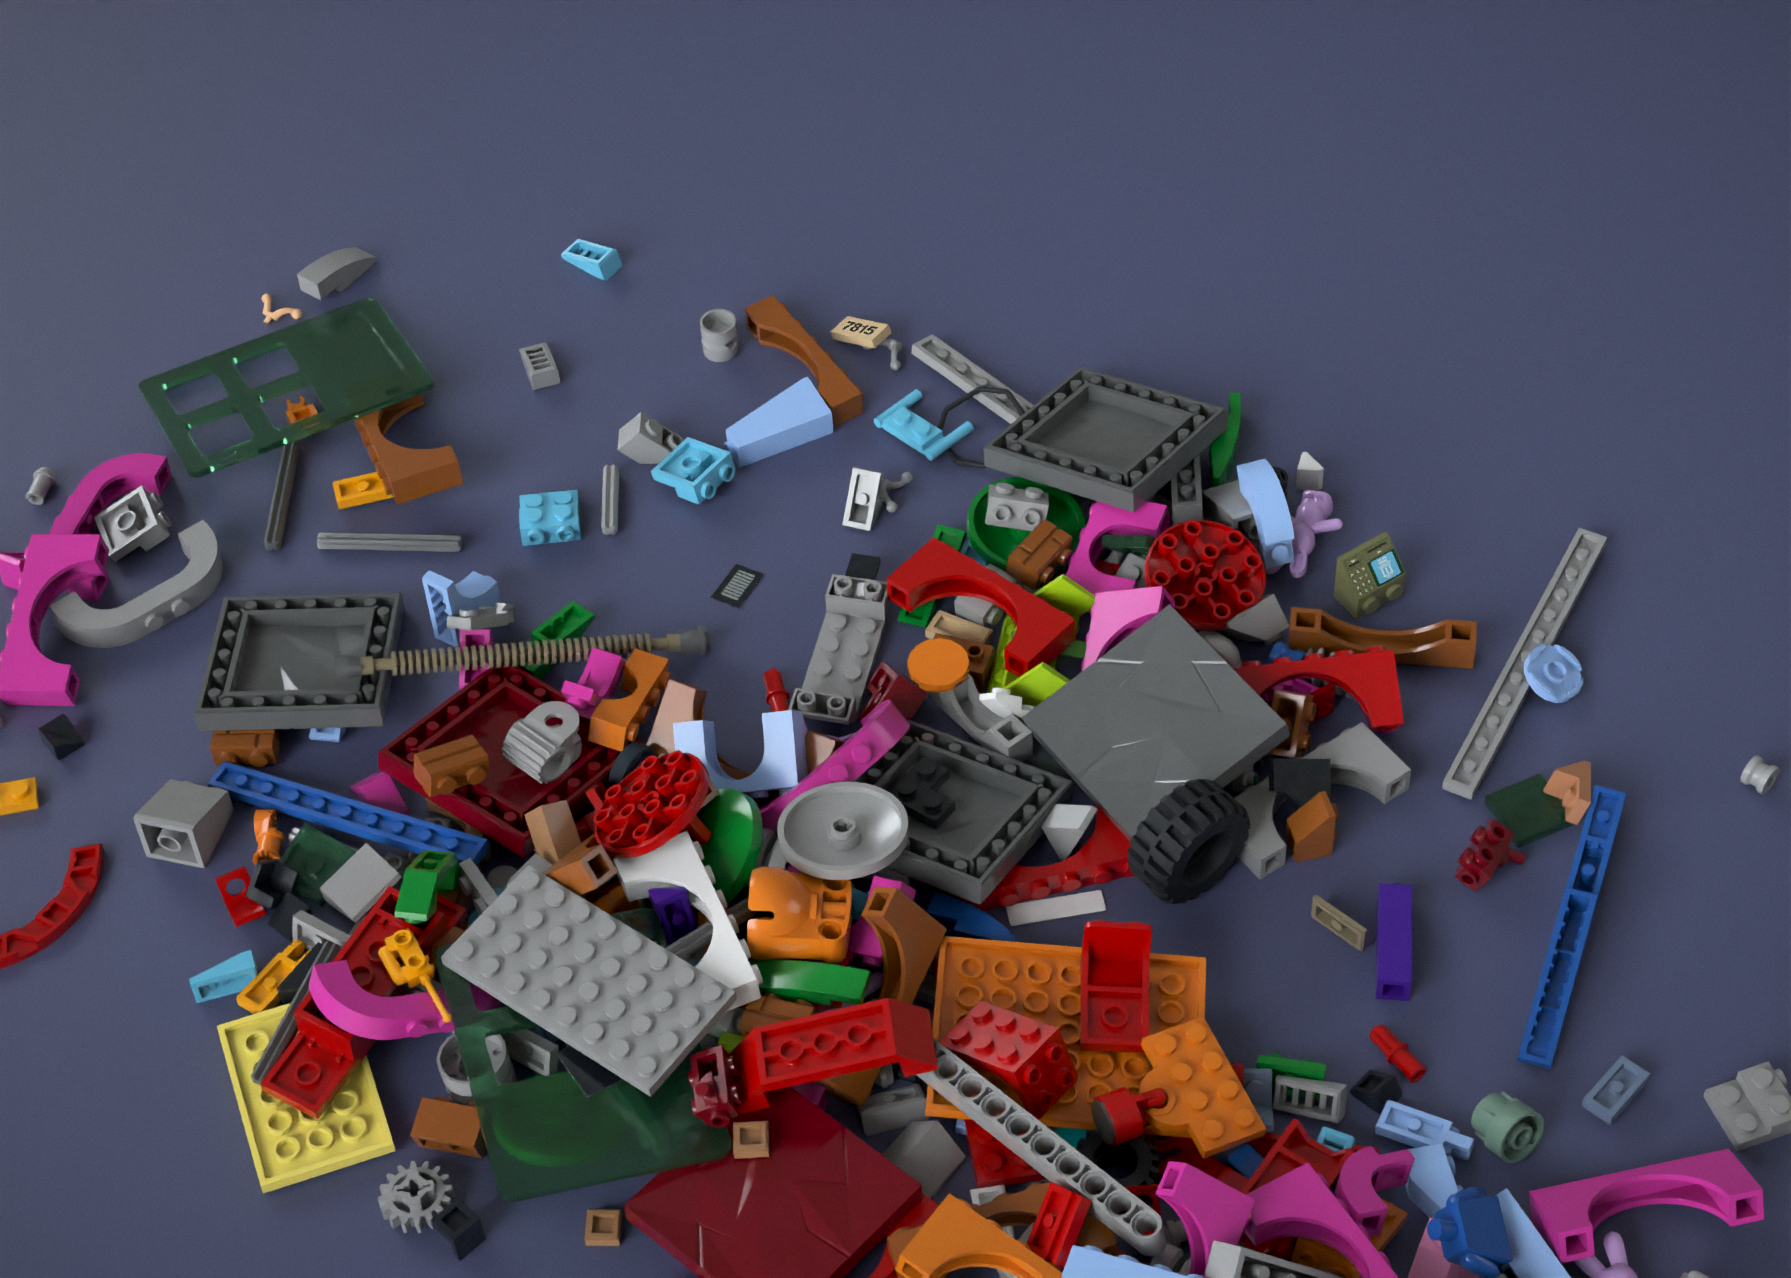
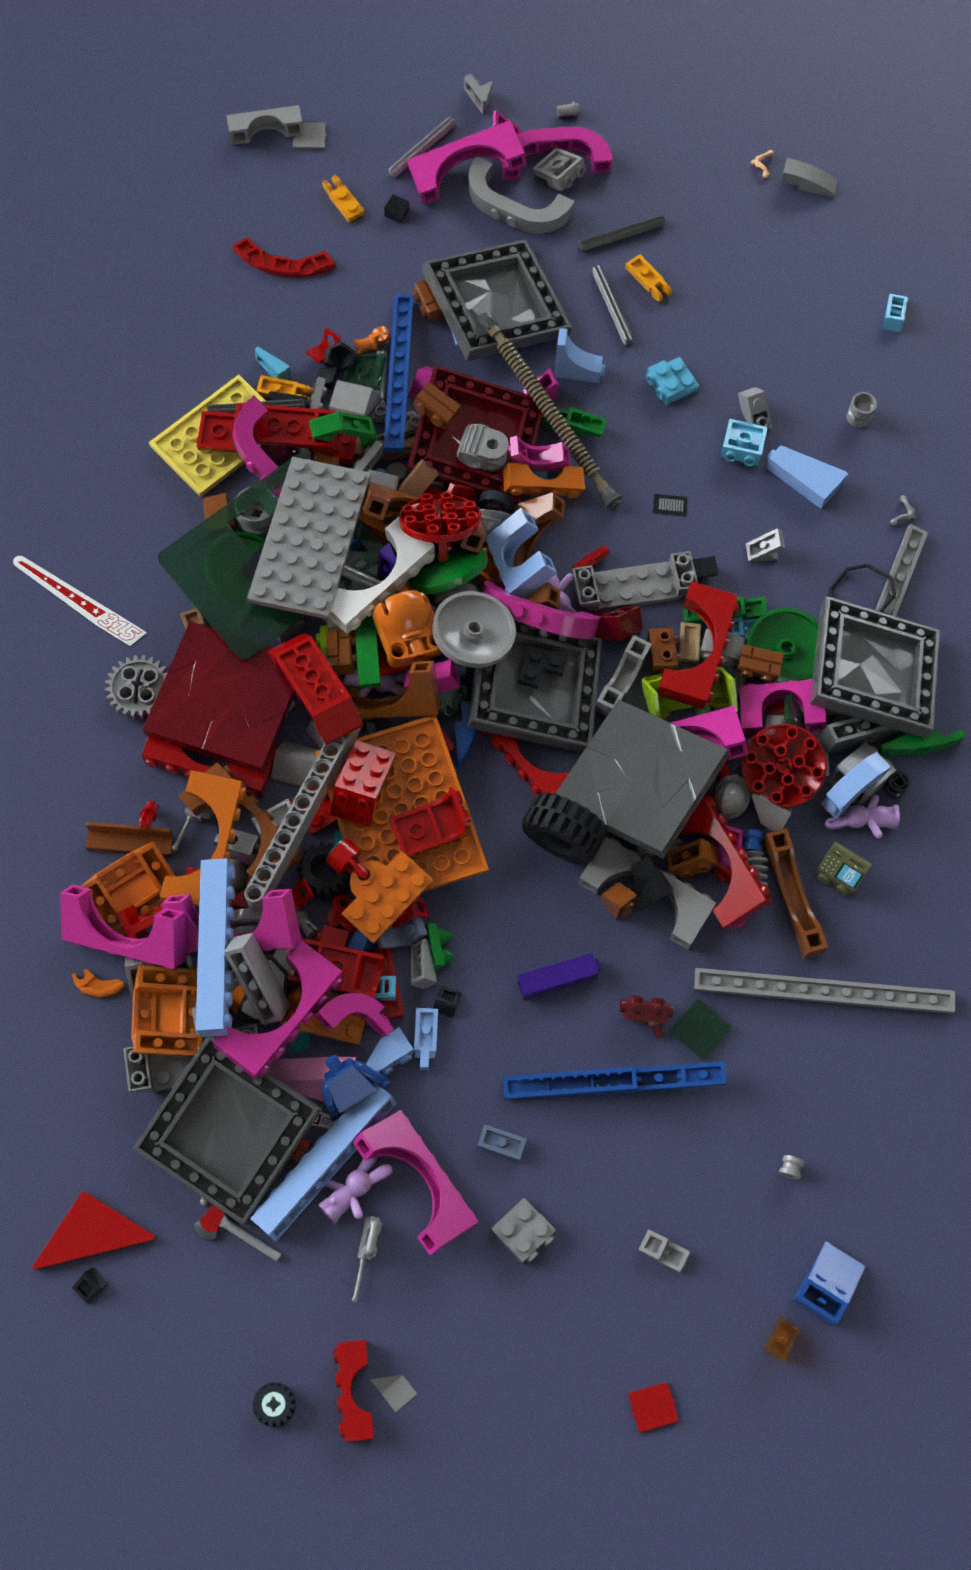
camera: 60 degrees right, 20 degrees up
(183, 822) = (364, 294): light grey slope -> none
(299, 411) = (684, 216): orange plate -> none
(345, 356) = (729, 223): clear green door -> none
(403, 470) = (707, 249): dark orange arch -> none
(415, 1196) = (178, 512): light grey gear -> none
(416, 968) = (287, 447): light orange piece -> none
(460, 1228) = (155, 545): black panel -> none
(483, 618) = (567, 377): light grey hinge -> none
(540, 366) = (783, 331): light grey slope -> none
(610, 499) = (701, 407): light grey axle -> none
(714, 1086) = (271, 632): dark red brick -> none
(750, 1139) = (254, 667): medium nougat tile -> none
(776, 327) = (848, 494): dark orange arch -> none
(861, 332) = (908, 490): tan tile -> none
(891, 506) = (772, 565): light grey piece -> none
(916, 431) = (841, 553): medium azure plate -> none
(938, 665) = (640, 637): orange tile -> none
(1005, 704) = (631, 688): white slope -> none
(1016, 507) = (792, 634): light grey bracket -> none
(1056, 908) = (506, 775): white sticker -> none
(1058, 1224) = (249, 847): red plate -> none
(1066, 826) = (555, 755): light grey slope -> none
(1309, 473) = (919, 802): white slope -> none
(1341, 924) = (563, 941): dark tan slope -> none
(1397, 1053) = (477, 1004): red axle -> none
(1507, 1126) = (443, 1084): sand green piece -> none
(1553, 673) = (818, 1010): light blue tile -> none
(1573, 786) = (724, 1049): nougat slope -> none

